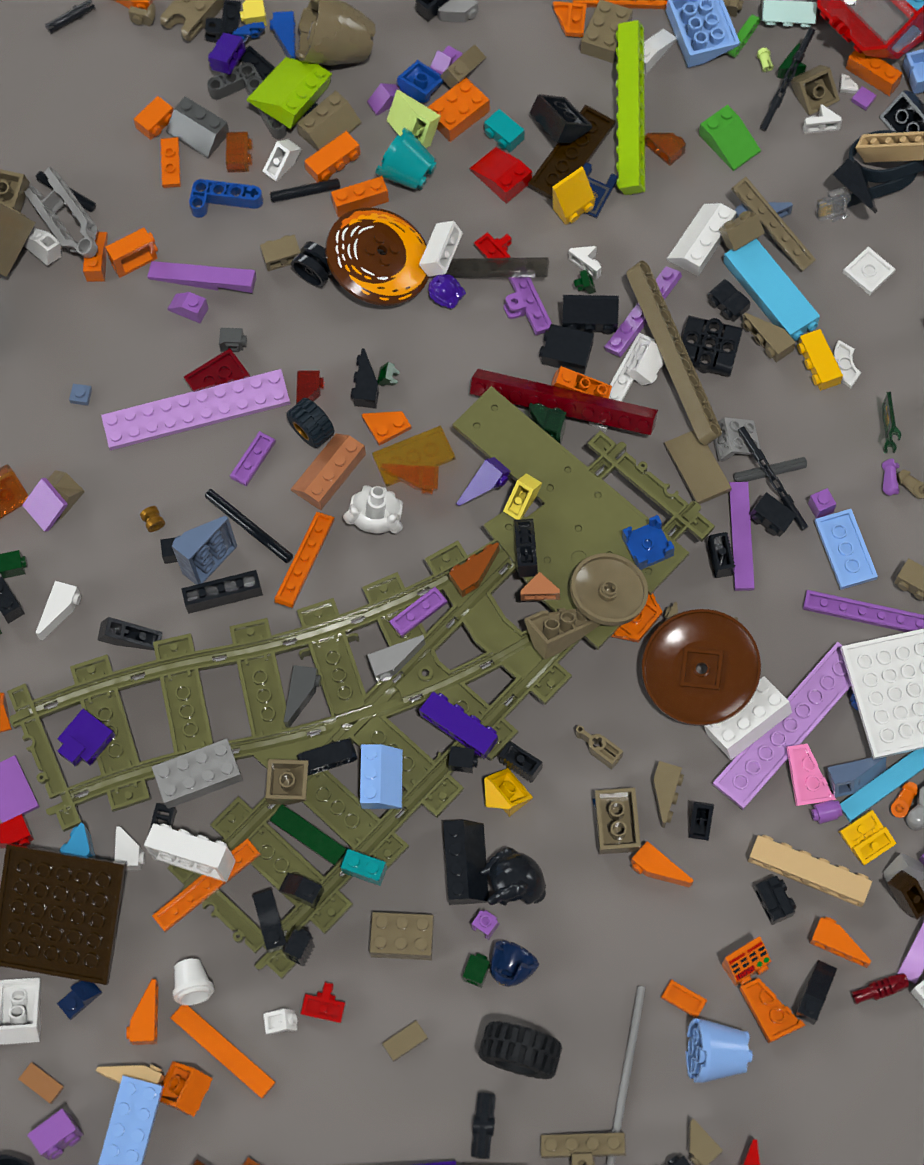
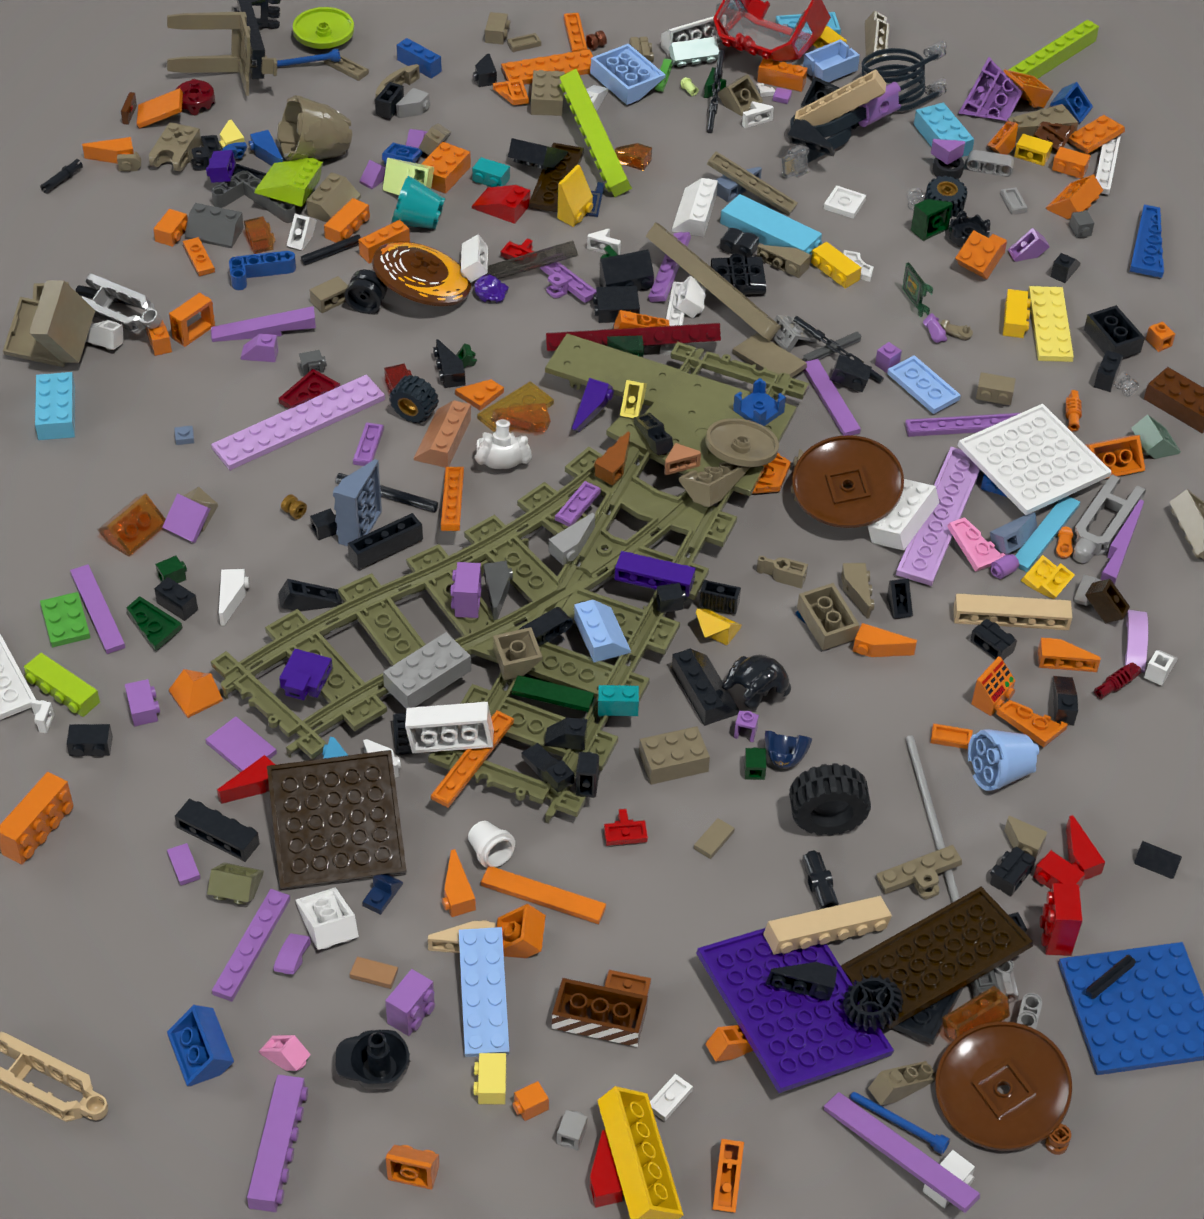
camera: 25 degrees left, 20 degrees down
(266, 691) = (466, 590): none -> medium lavender brick
(280, 1021) = (588, 853): white bracket -> none
(721, 555) = (822, 409): black brick -> none
(729, 137) = (684, 139): bright green slope -> none
(741, 230) = (729, 189): dark tan brick -> none

